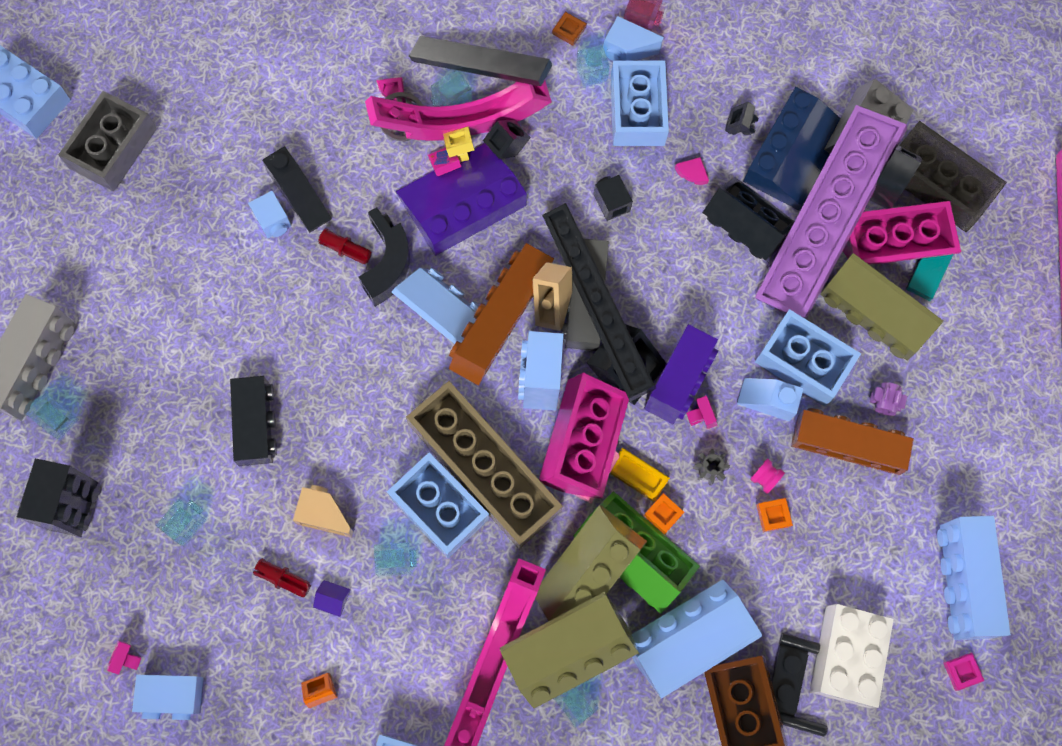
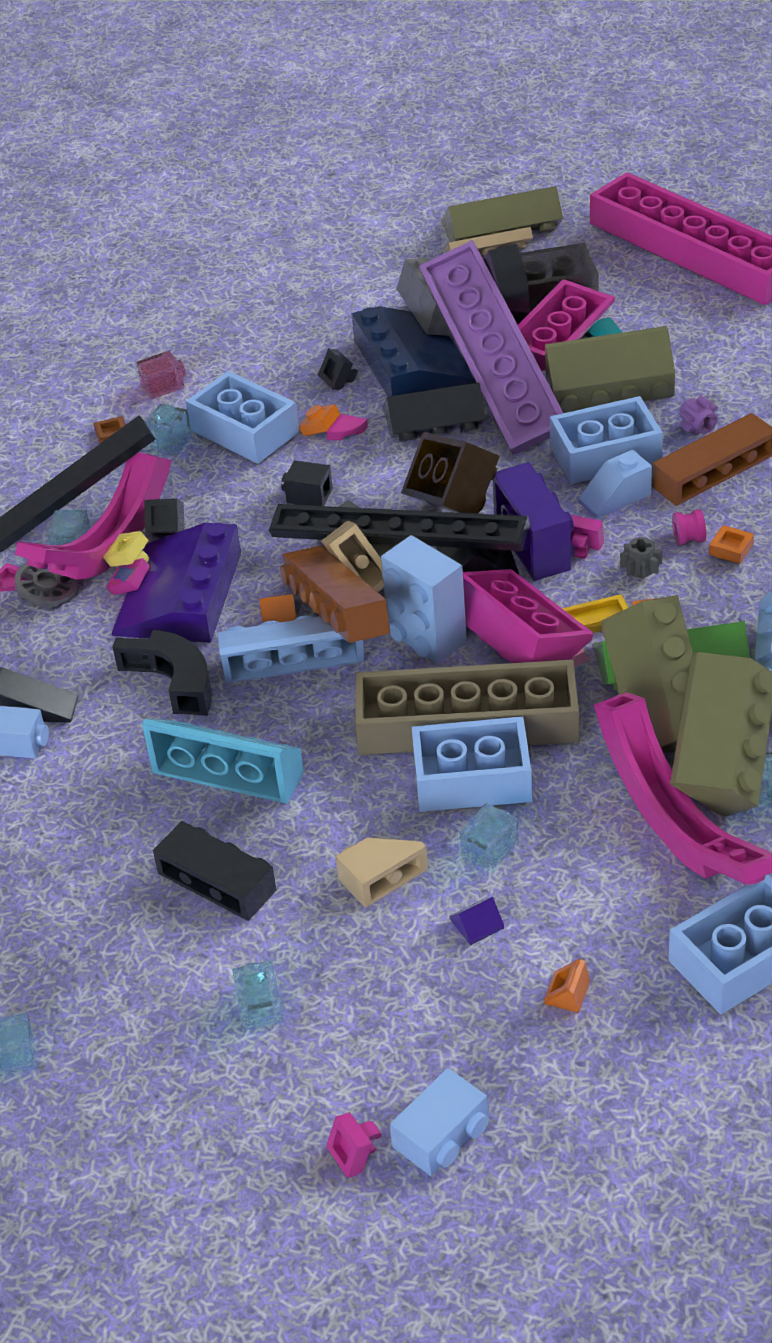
camera: 40 degrees left, 30 degrees down
(58, 498) = (117, 1062): black brick -> none
(281, 578) = (413, 944): dark red axle -> none
(336, 352) = (223, 759): none -> medium azure slope
(344, 246) = (121, 697): dark red axle -> none
(487, 273) = (278, 608): none -> orange slope
(630, 42) = (177, 388): light blue slope -> none
(670, 294) = (450, 474): none -> dark brown brick
(682, 150) = (319, 419): none -> orange plate
(965, 107) = (497, 240): none -> tan plate
(1003, 93) = (504, 213): none -> olive slope

